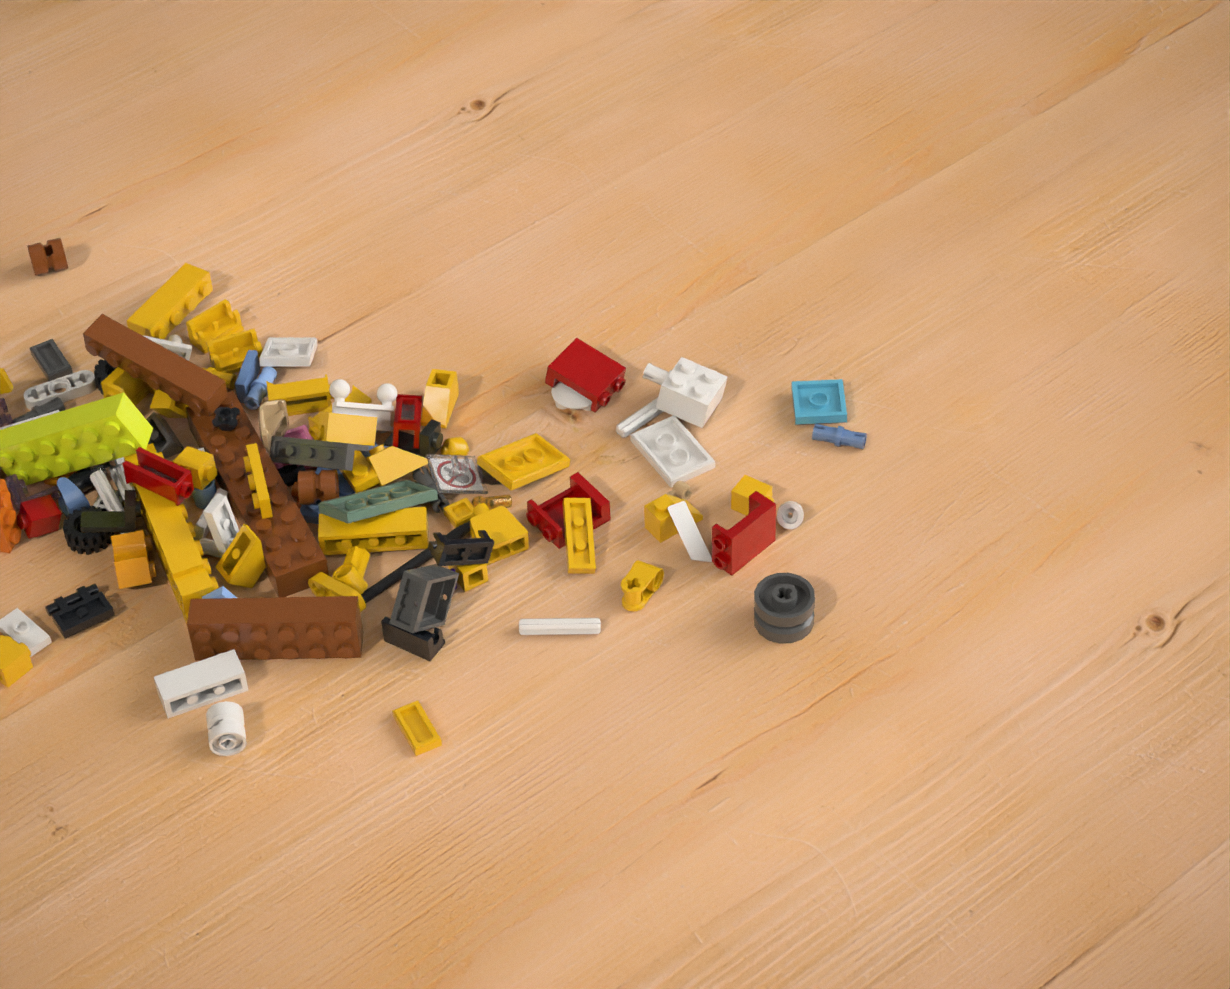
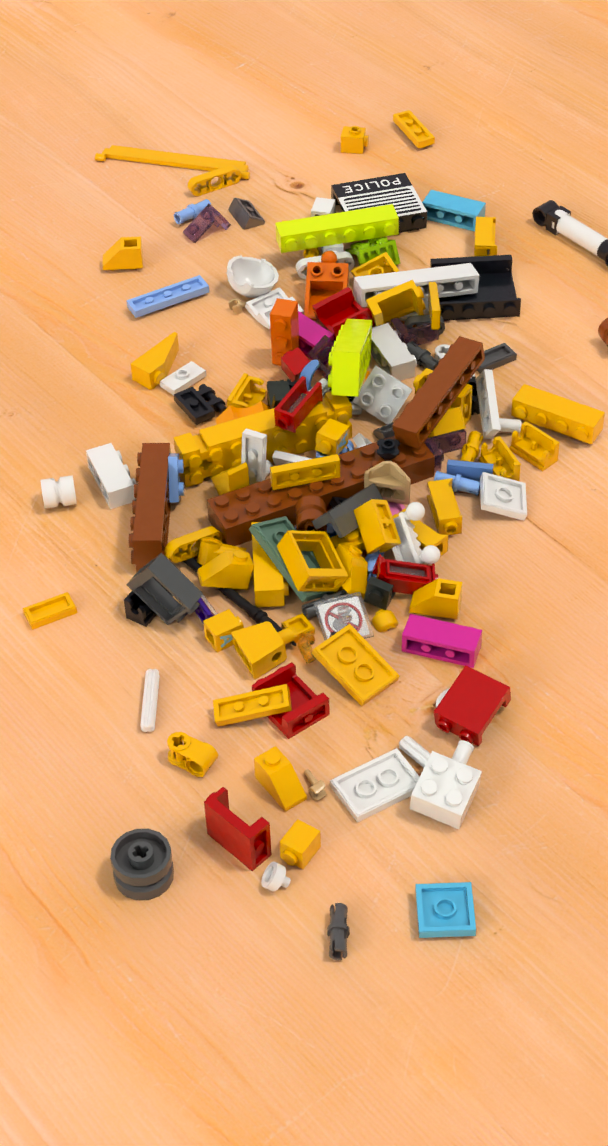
camera: 90 degrees right, 0 degrees up
(77, 569) = (246, 393): none -> yellow hinge
(384, 560) = (227, 570): none -> yellow slope
(393, 477) = (331, 571): none -> yellow window
(461, 550) = (218, 607): black hinge -> none
(492, 400) = (441, 640): none -> dark pink brick
(689, 532) = (250, 786): white sticker -> none
(839, 436) = (393, 928): medium blue pin -> none
(846, 471) = (338, 931): none -> dark grey pin

